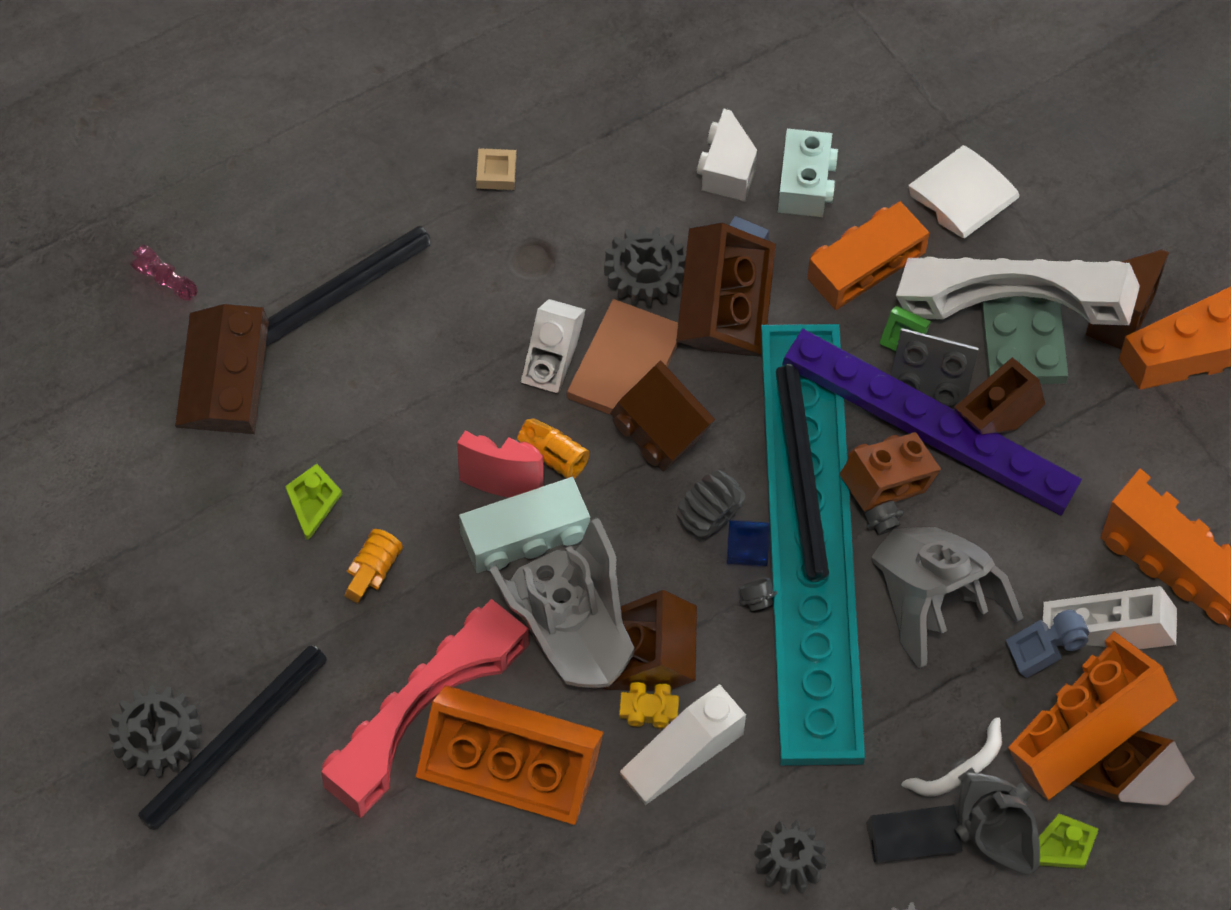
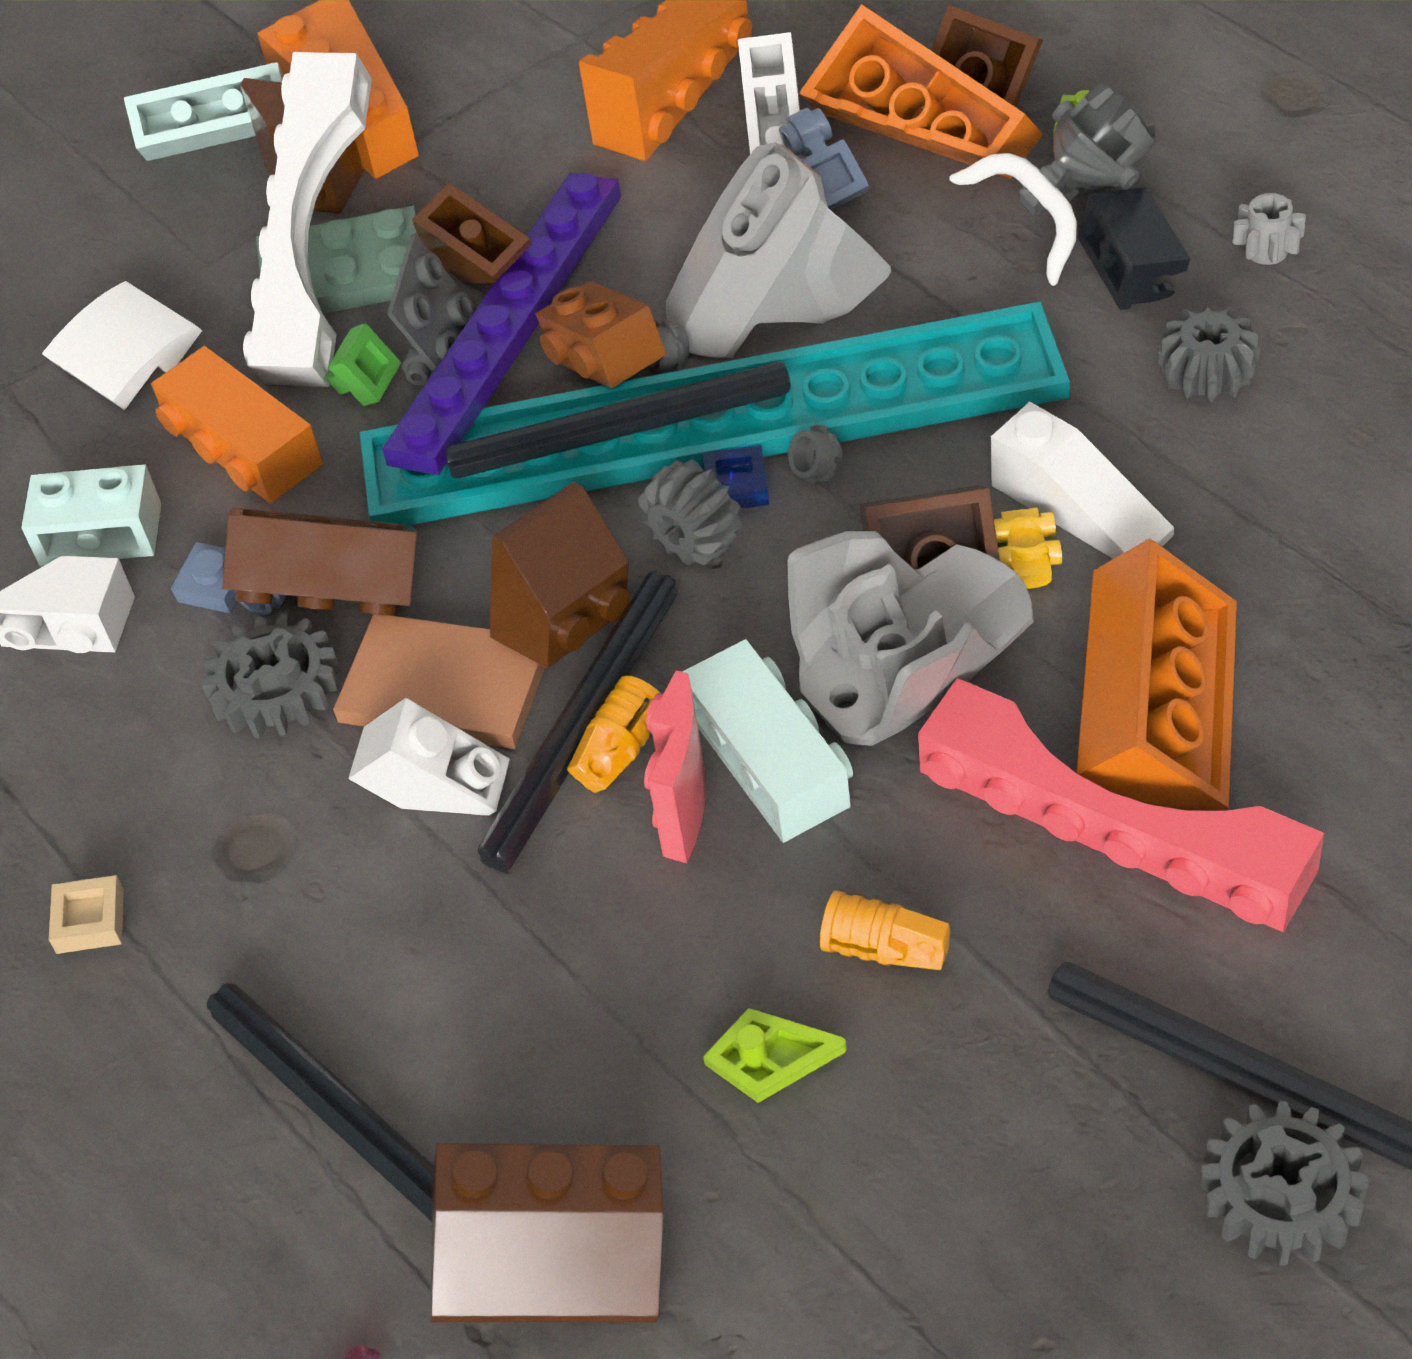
camera: 90 degrees left, 10 degrees down
(598, 445) = (550, 764): none -> black axle
(1186, 234) = (194, 113): none -> light aqua brick

